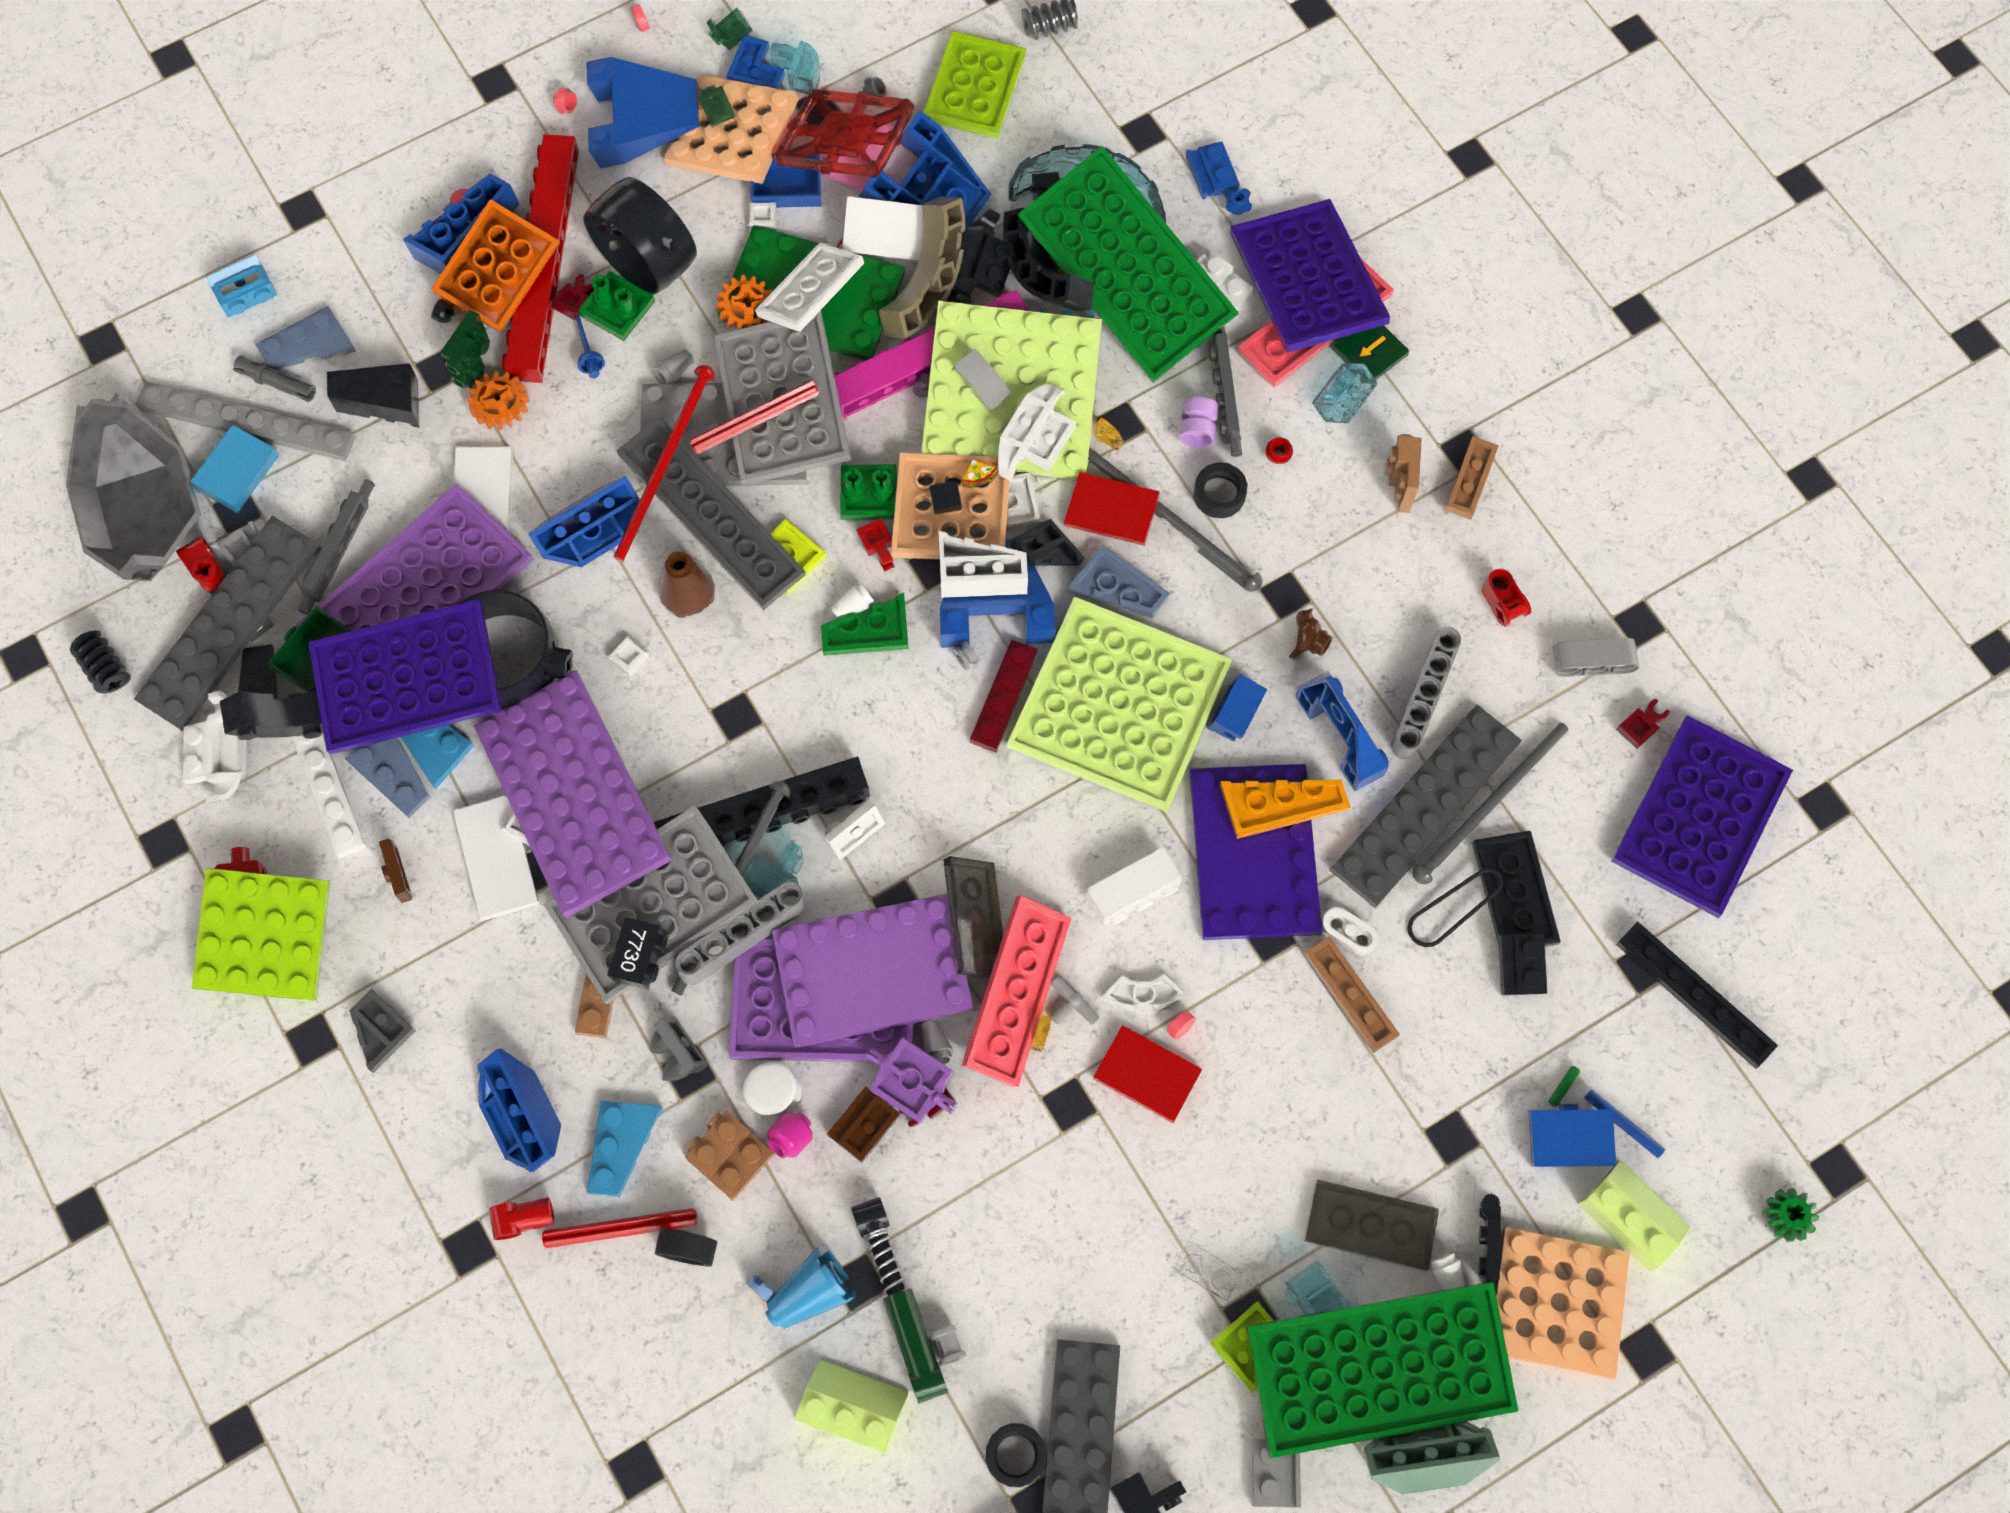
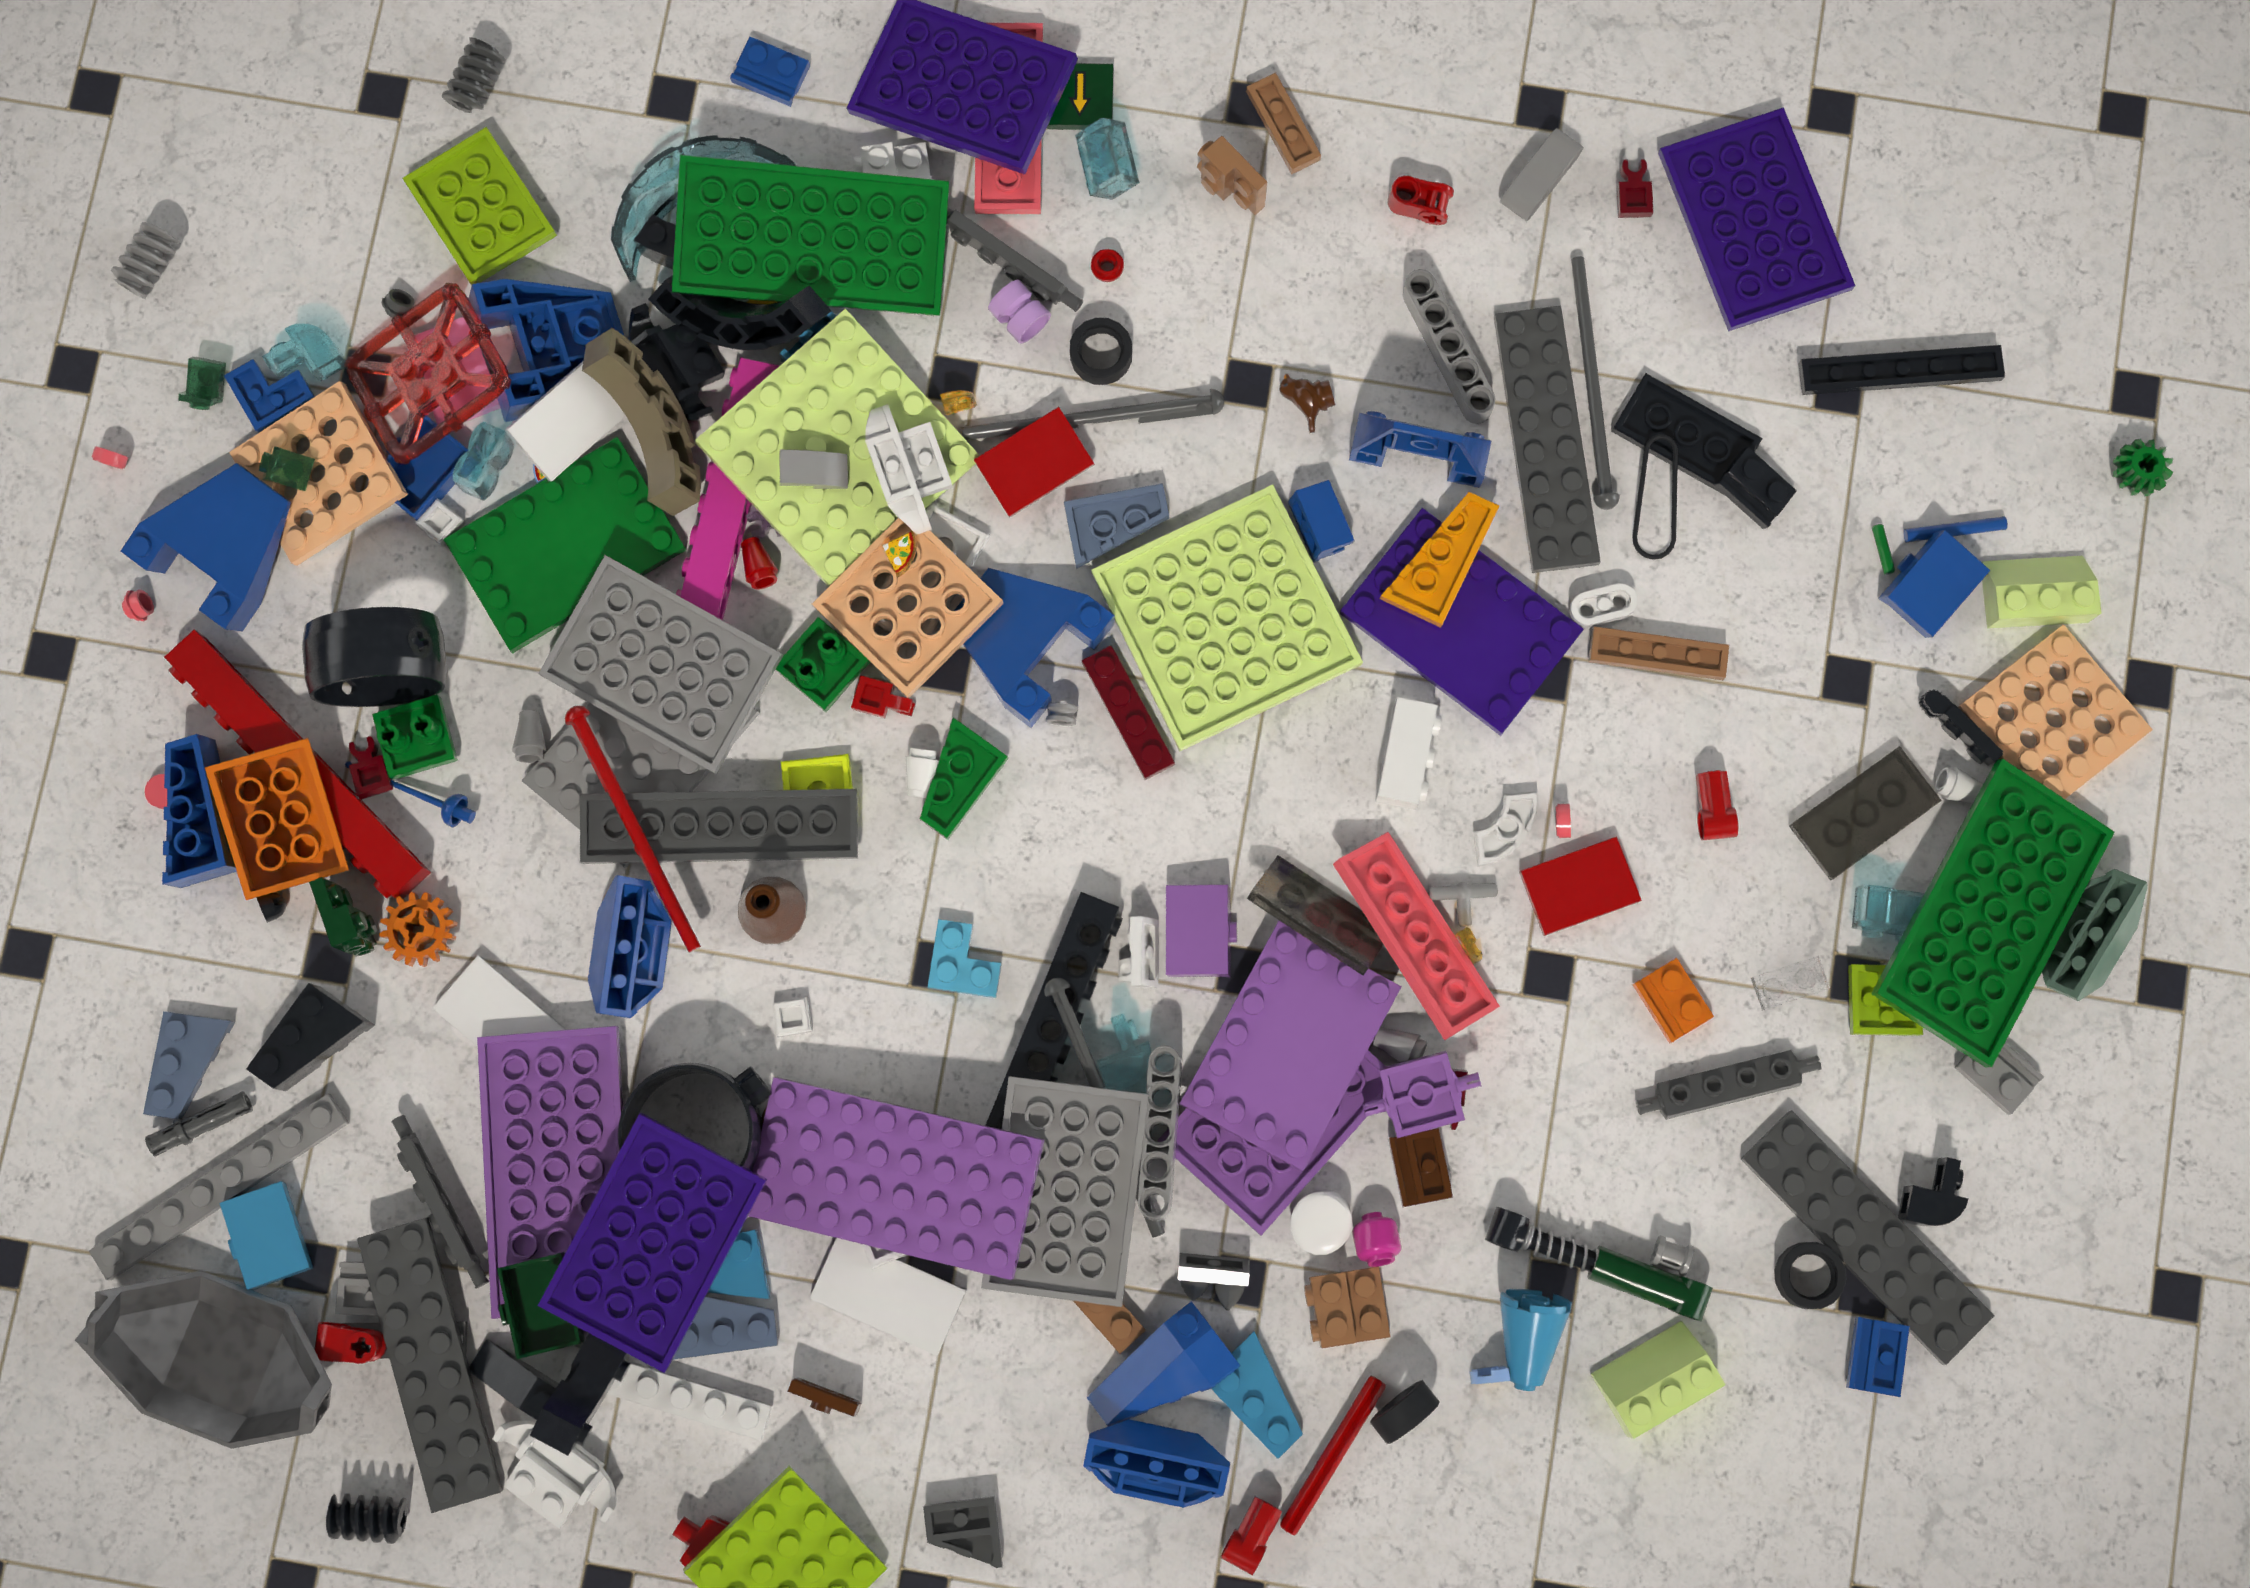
camera: 45 degrees left, 10 degrees up
(246, 296) = (49, 1074): dark azure window -> none
(594, 1067) = (1168, 1365): none -> blue wedge
(637, 953) = (1109, 1242): black brick -> none
(735, 309) = (519, 609): orange gear -> none
(743, 727) = (952, 968): none -> medium azure plate
(754, 417) = (662, 707): axle -> none
(809, 286) = (568, 543): white tile -> none
(819, 205) = (480, 466): none -> clear light blue brick
(897, 407) = (758, 565): none -> red cone
(899, 853) = (1199, 931): none -> medium lavender container
(945, 497) = (897, 601): black tile -> none
(980, 569) = (1001, 633): white wedge -> none
(1047, 546) = (1021, 552): black wing -> none
(1100, 1287) = (1728, 1084): none -> dark grey plate
(1125, 1201) = (1673, 1000): none -> orange plate
(1238, 207) = (828, 85): blue plate -> none
(1278, 1122) = (1716, 815): none -> red piece

